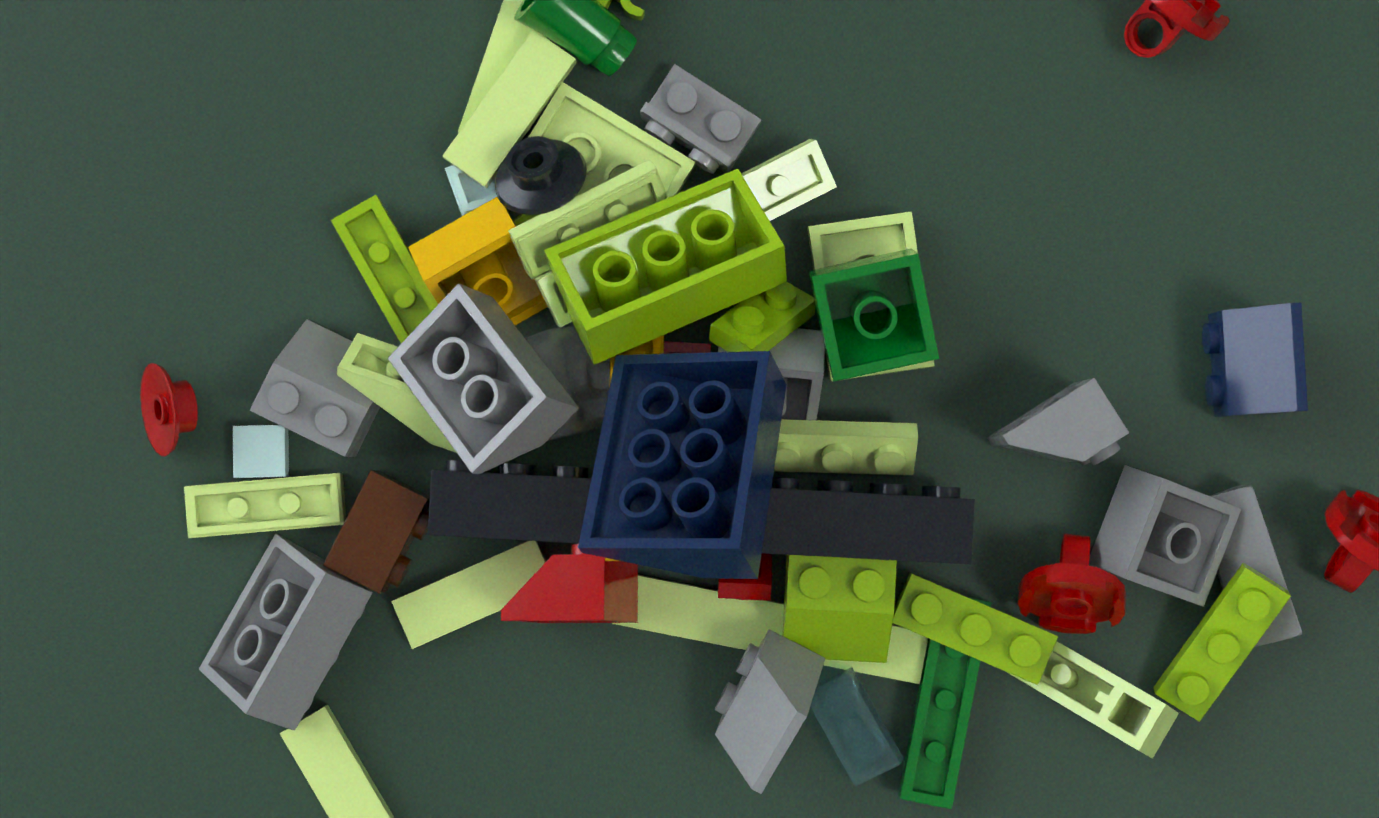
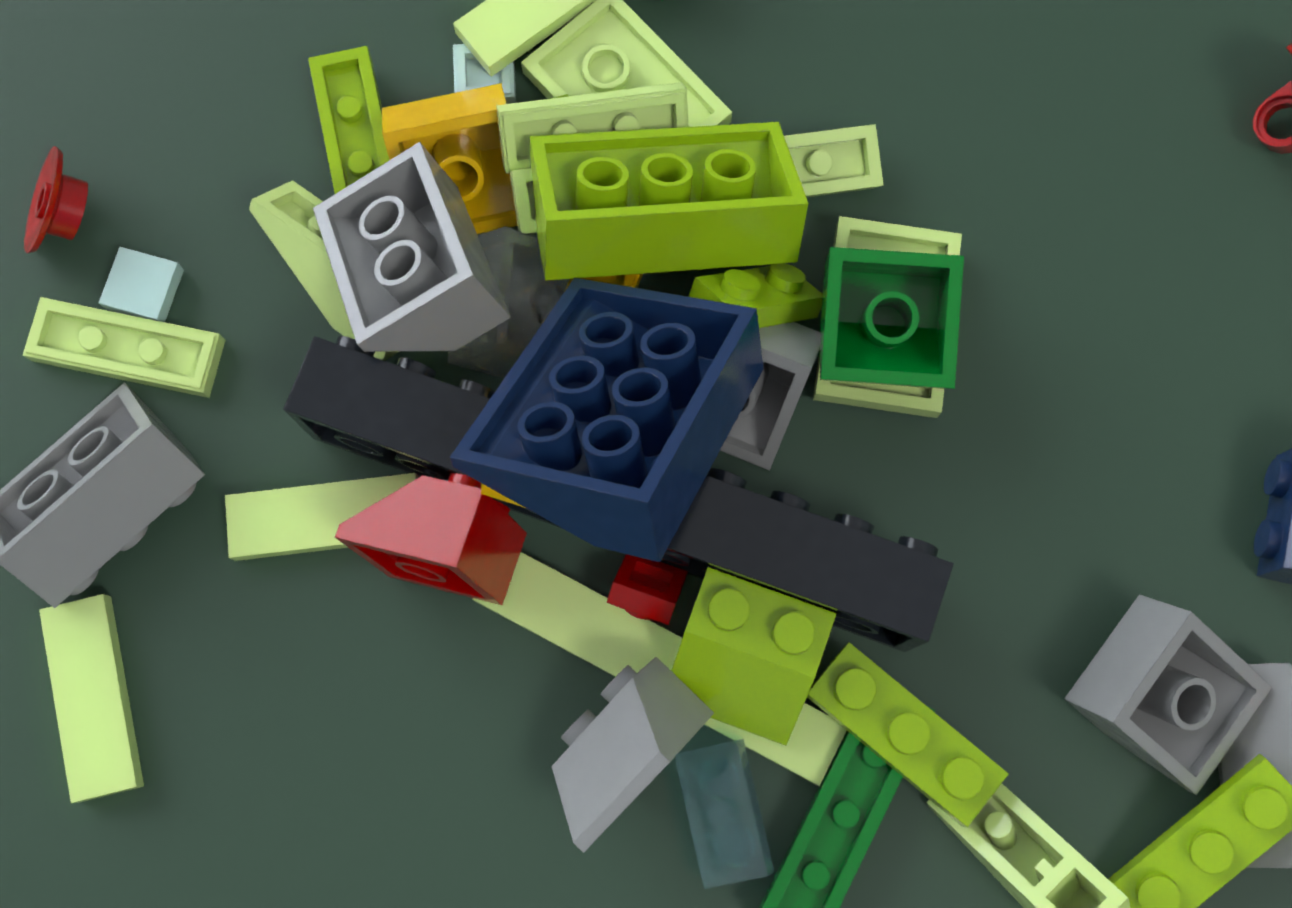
camera: 15 degrees right, 10 degrees down
(309, 395) = (219, 241): light grey slope -> none
(380, 532) = (234, 412): reddish brown brick -> none
(539, 176) = (552, 63): black piece -> none
(699, 120) = (749, 72): light grey bracket -> none
(846, 447) = (813, 471): yellowish green plate -> none
(1067, 427) = (1081, 524): light grey slope -> none
(1071, 593) = (1040, 726): red tile -> none

